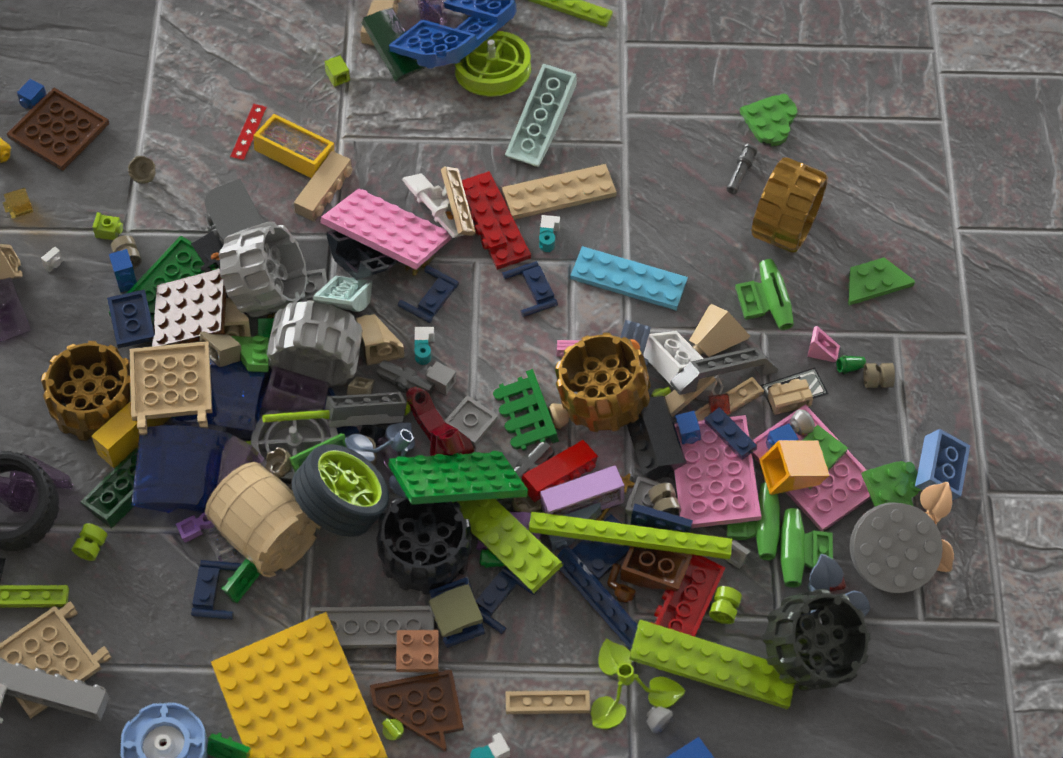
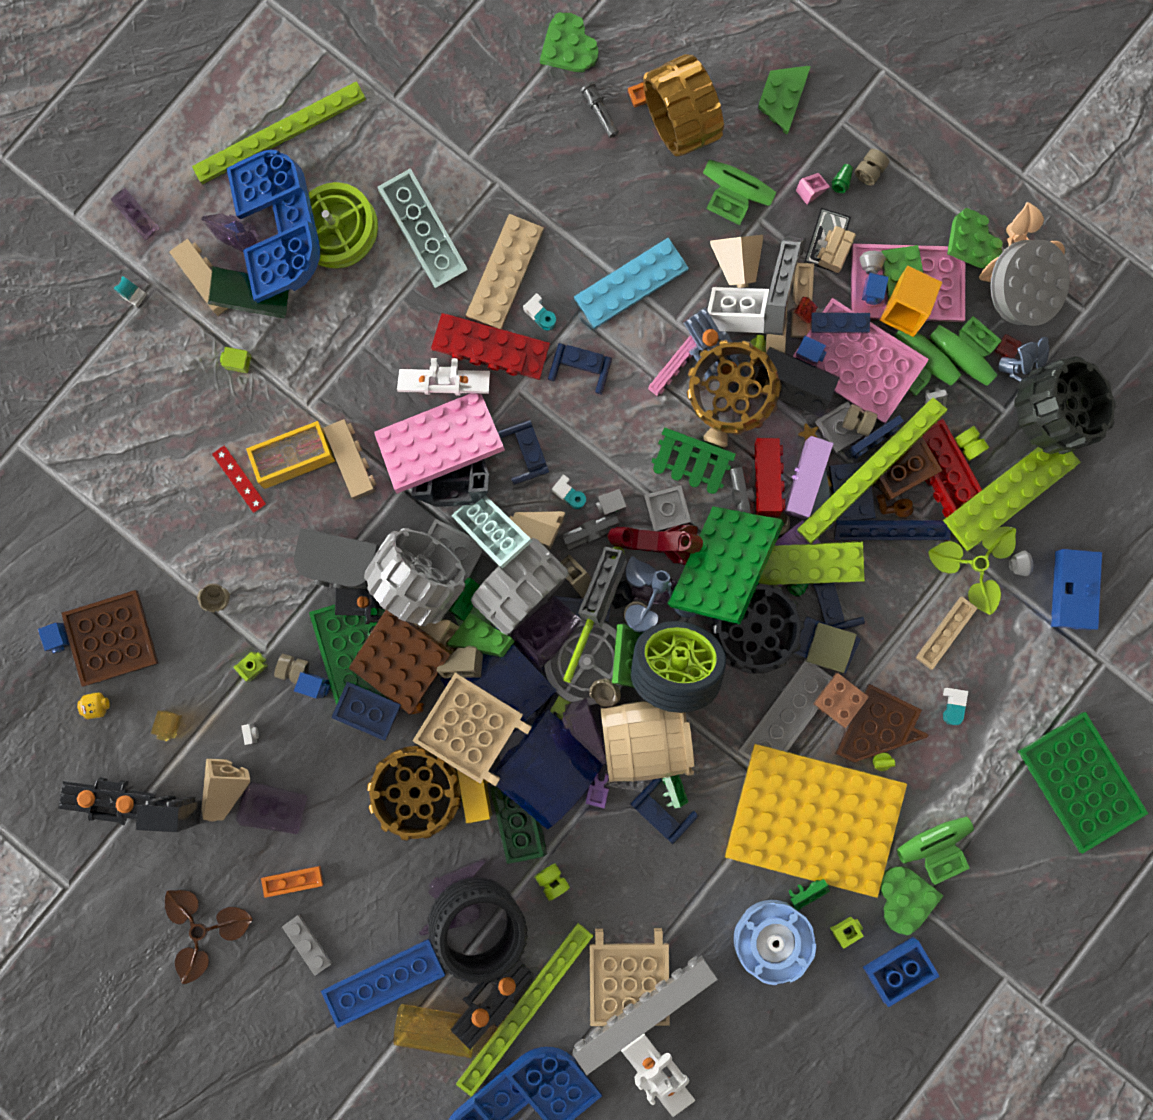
camera: 50 degrees left, 25 degrees up
(458, 201) = (458, 363): tan tile -> none
(943, 460) = (987, 188): medium blue brick -> none

